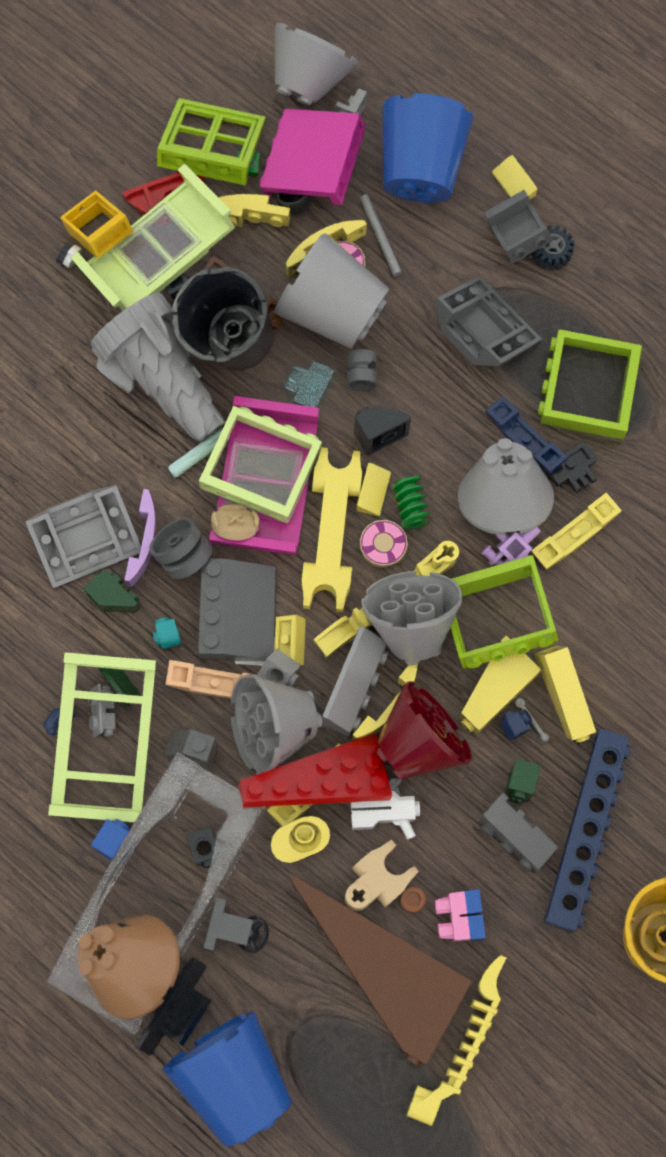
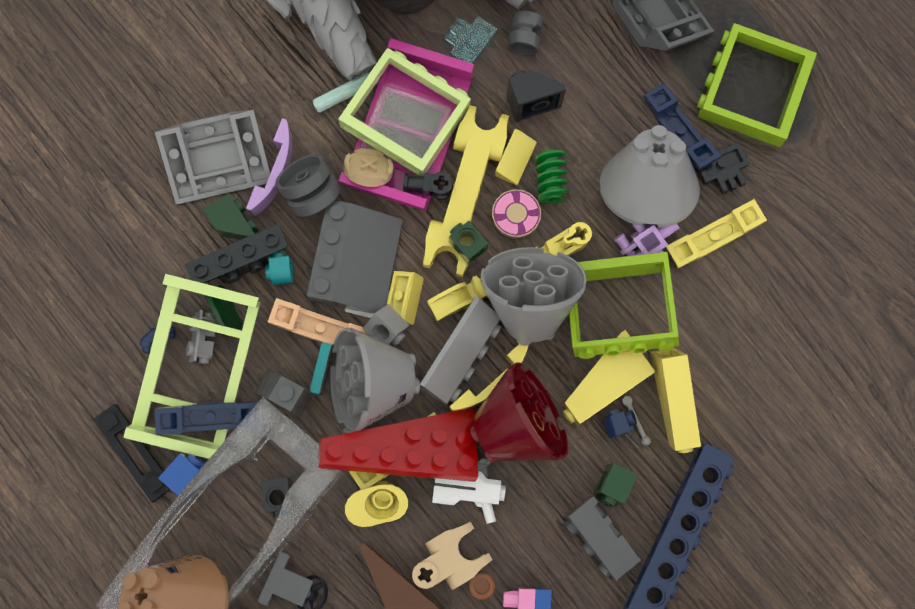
camera: 10 degrees right, 5 degrees up
(81, 856) = (113, 422): none -> black container
(119, 784) = (201, 417): none -> dark blue slope
(126, 628) = (238, 258): none -> black bracket
(224, 721) = (321, 369): none -> teal tile
(295, 529) = (428, 184): none -> black connector
(346, 586) = (471, 252): none -> dark green brick

